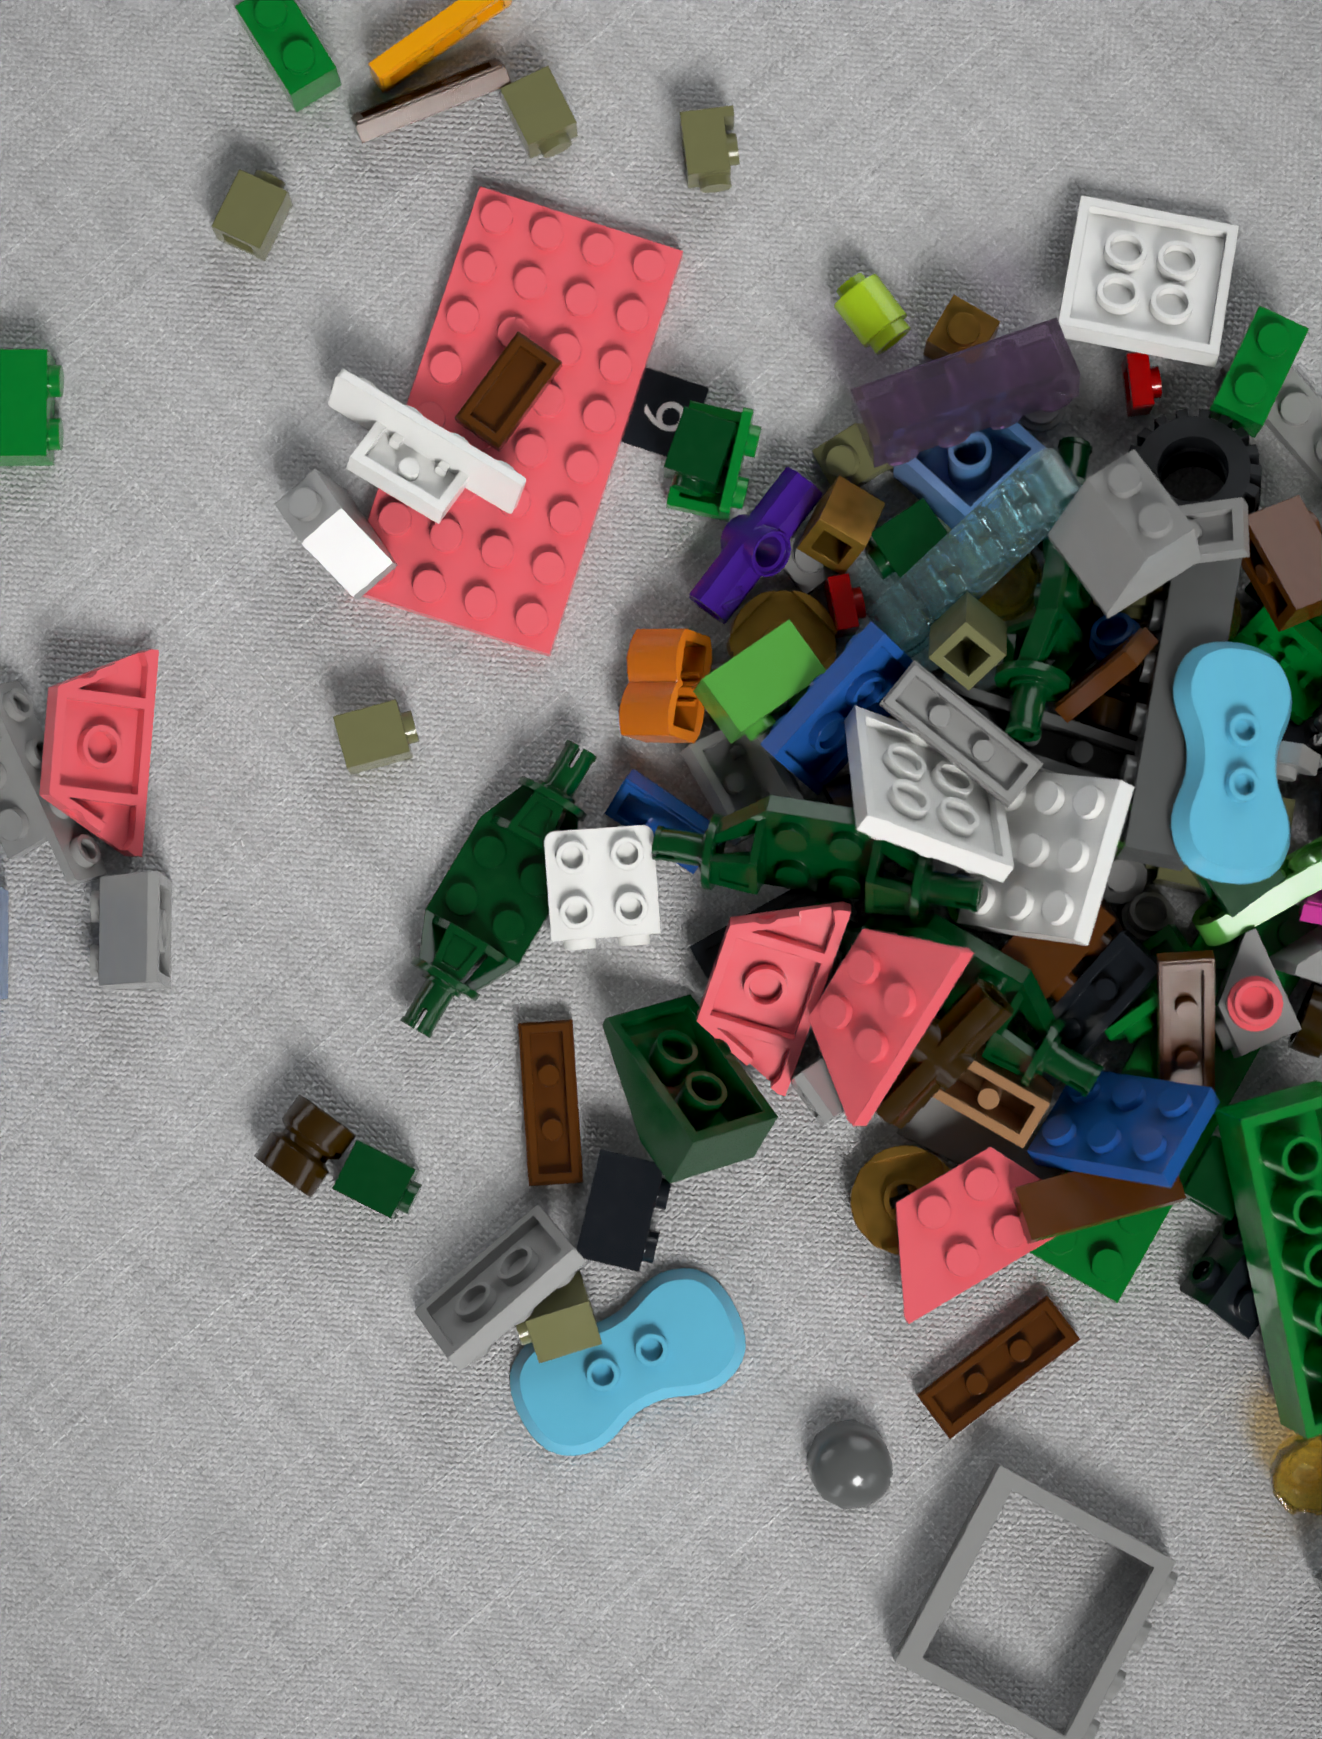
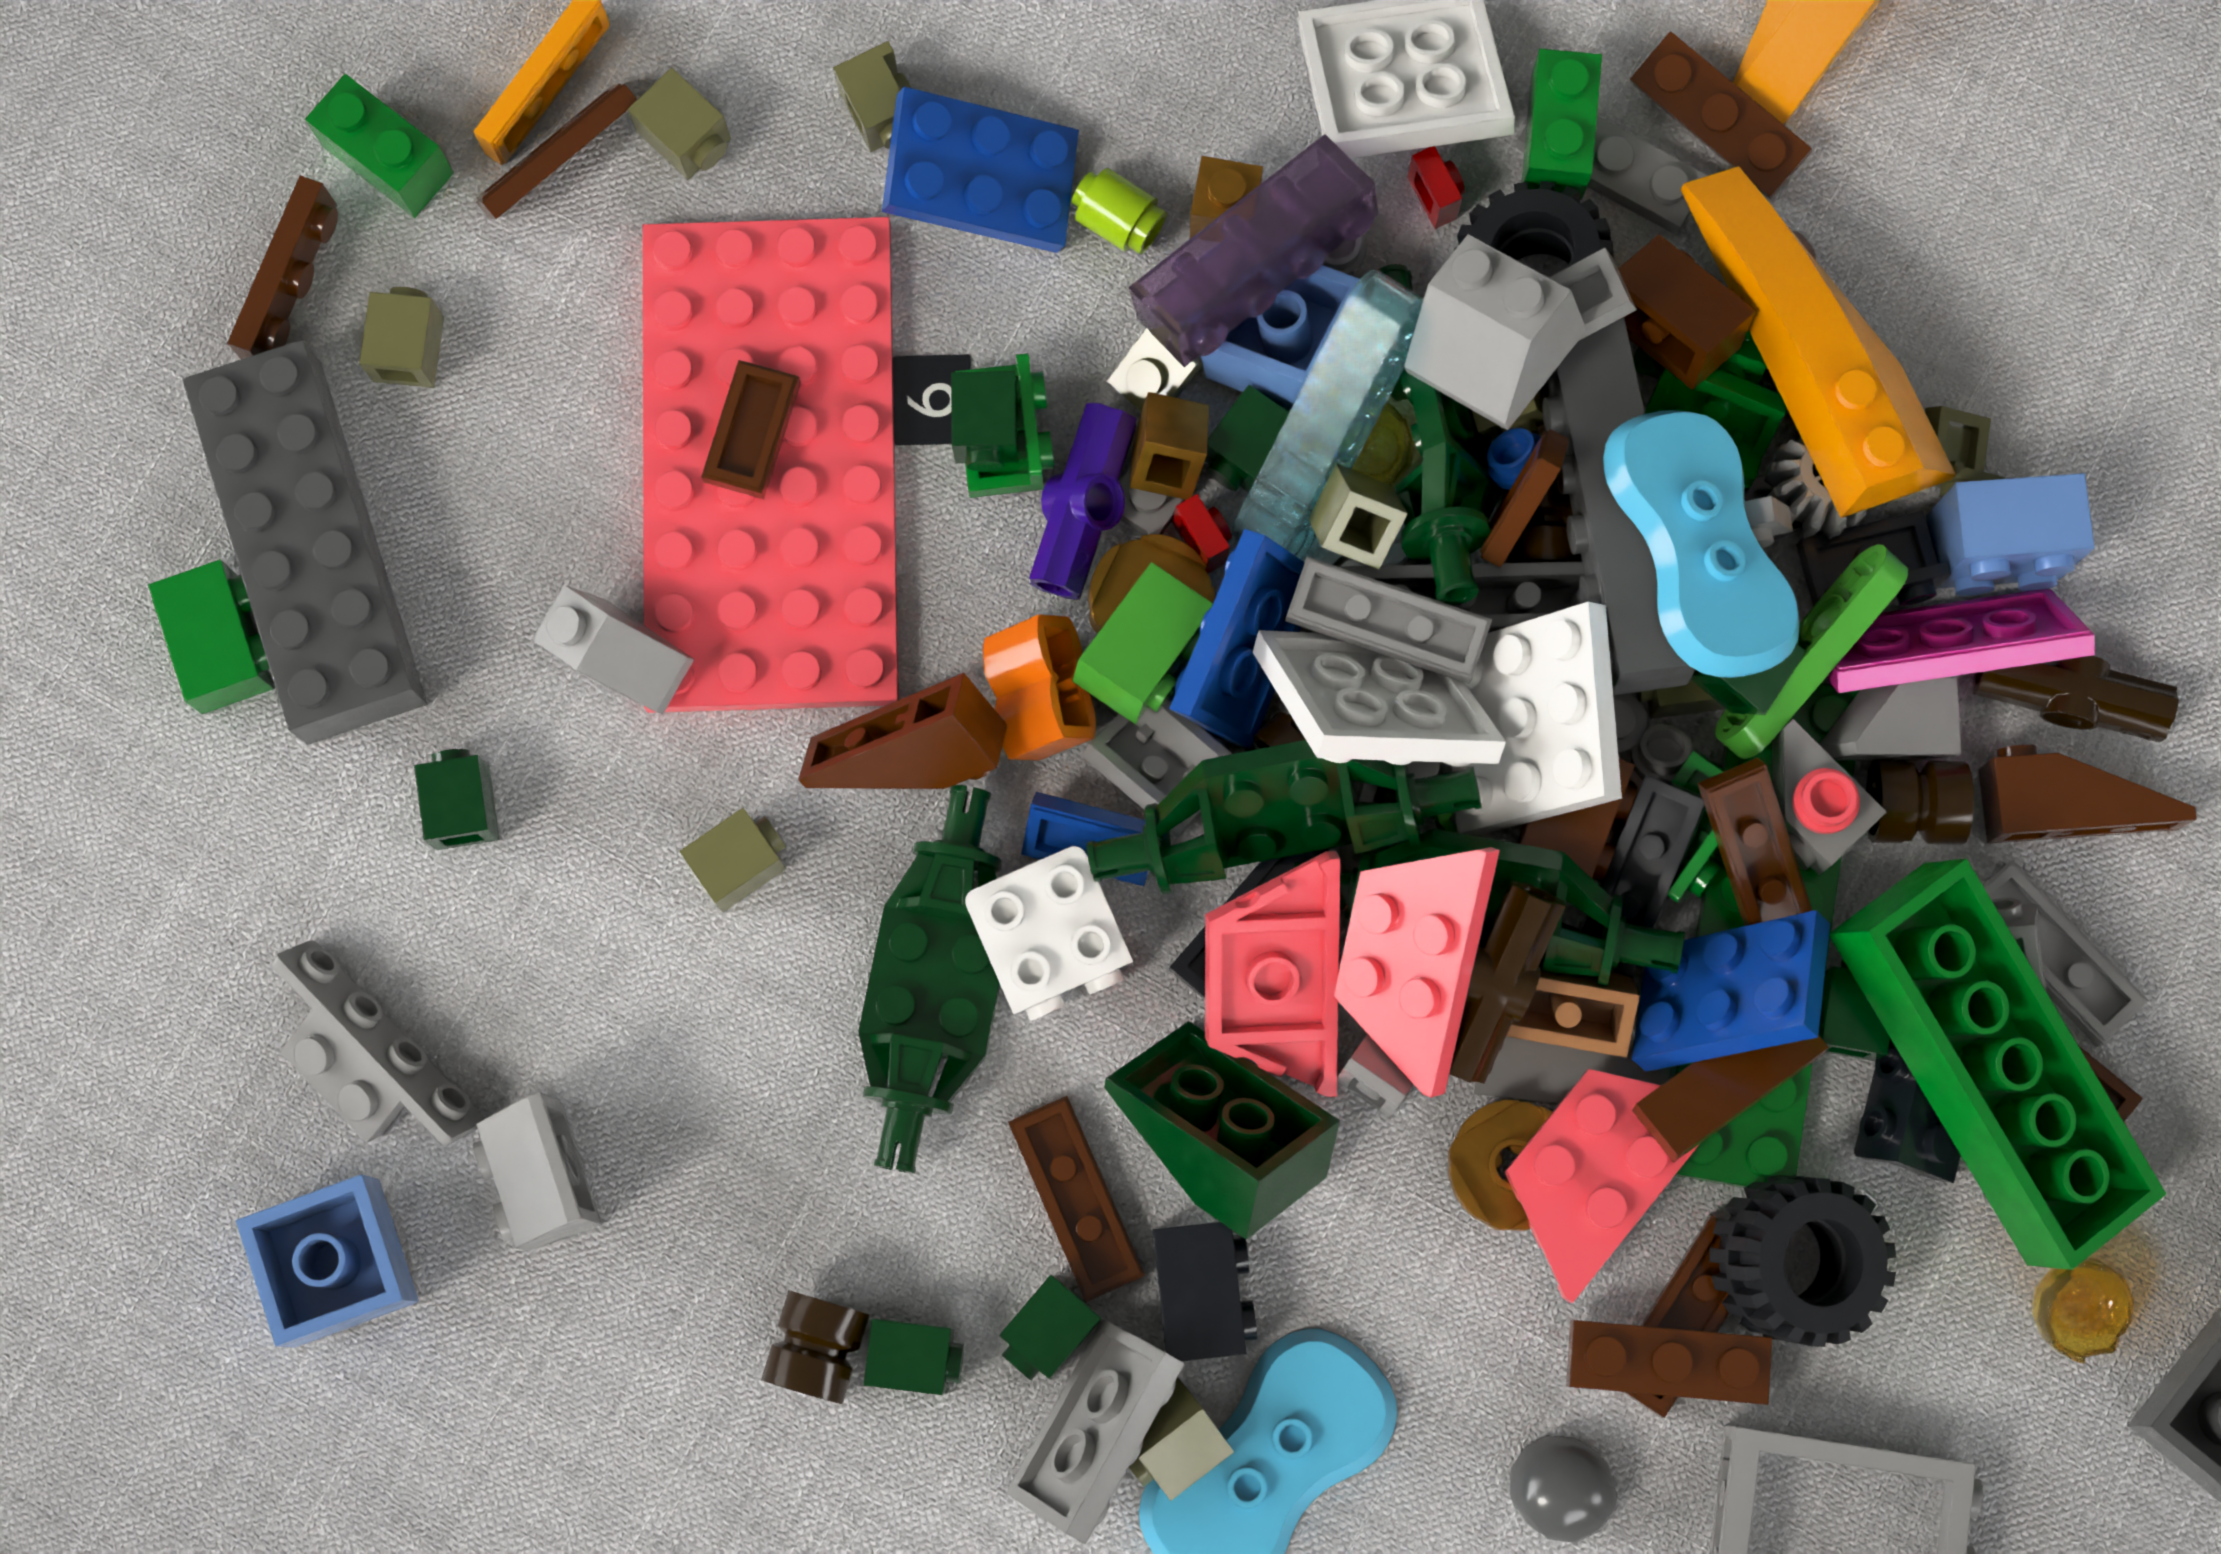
camera: 20 degrees left, 5 degrees down
(102, 749) = (431, 982): coral wing -> none
(118, 356) = (304, 542): none -> dark grey brick
(170, 610) = (456, 800): none -> dark green brick
(176, 126) = (285, 270): none -> reddish brown plate
(416, 456) = (673, 531): white bracket -> none
(491, 1197) = (1047, 1330): none -> dark green brick
(549, 695) = (912, 743): none -> reddish brown slope
(770, 240) = (980, 170): none -> blue plate
(968, 1397) = (1669, 1362): none -> reddish brown plate
(1136, 1379) = (1849, 1269): none -> black tyre

